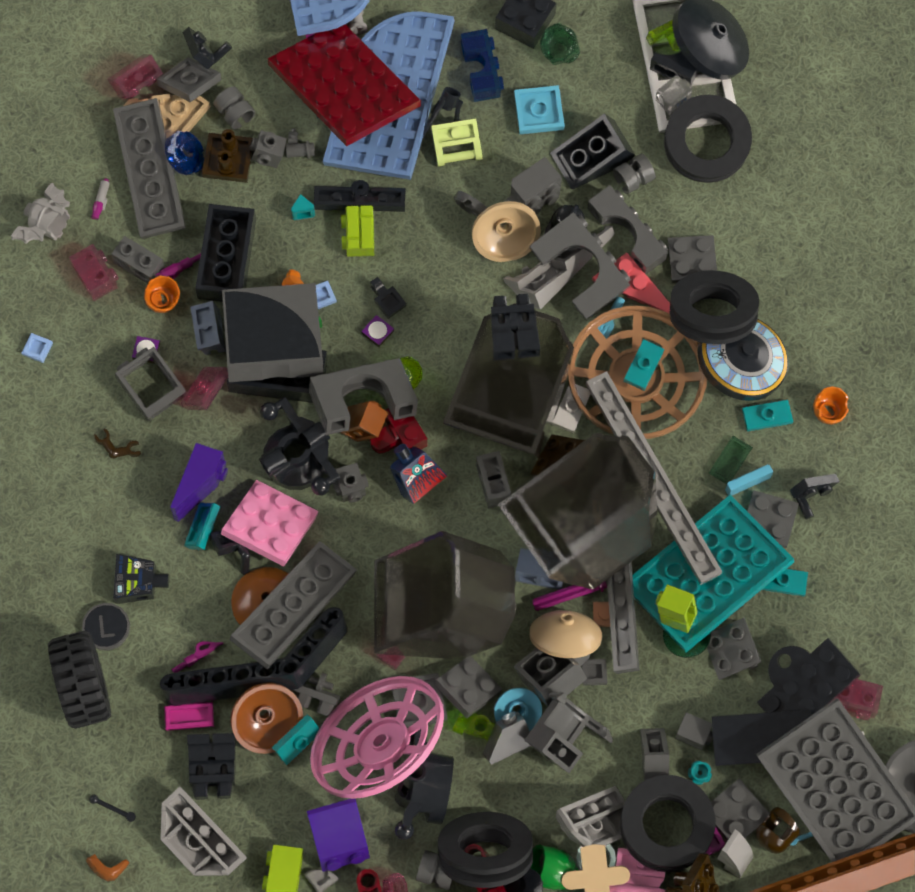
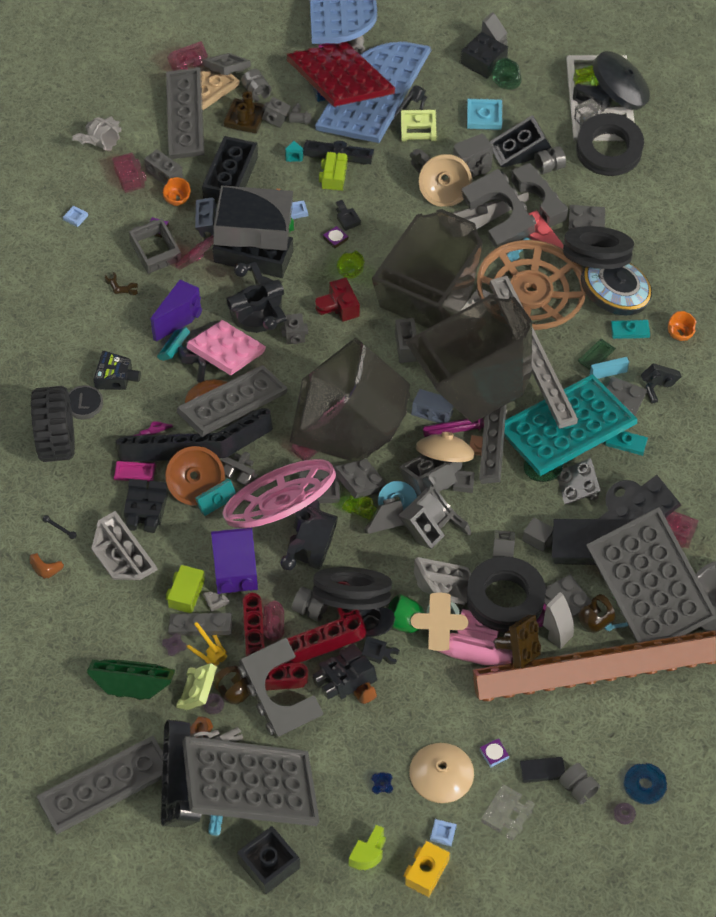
camera: 10 degrees right, 15 degrees down
(101, 199) = (143, 134): piece -> none
(175, 269) = (193, 178): magenta hand -> none
(178, 160) = (206, 103): clear blue tile -> none
(200, 51) = (239, 45): black plate -> none
(365, 421) = (312, 287): dark orange brick -> none
(385, 378) = (336, 260): dark grey arch -> none
(415, 472) = (345, 326): torso -> none
(478, 47) = (446, 91): clear blue arch -> none
(511, 331) = (439, 221): black hips -> none
(643, 365) = (537, 278): teal plate -> none
(676, 608) = (537, 436): lime piece -> none
(700, 766) = (540, 561): teal plate -> none

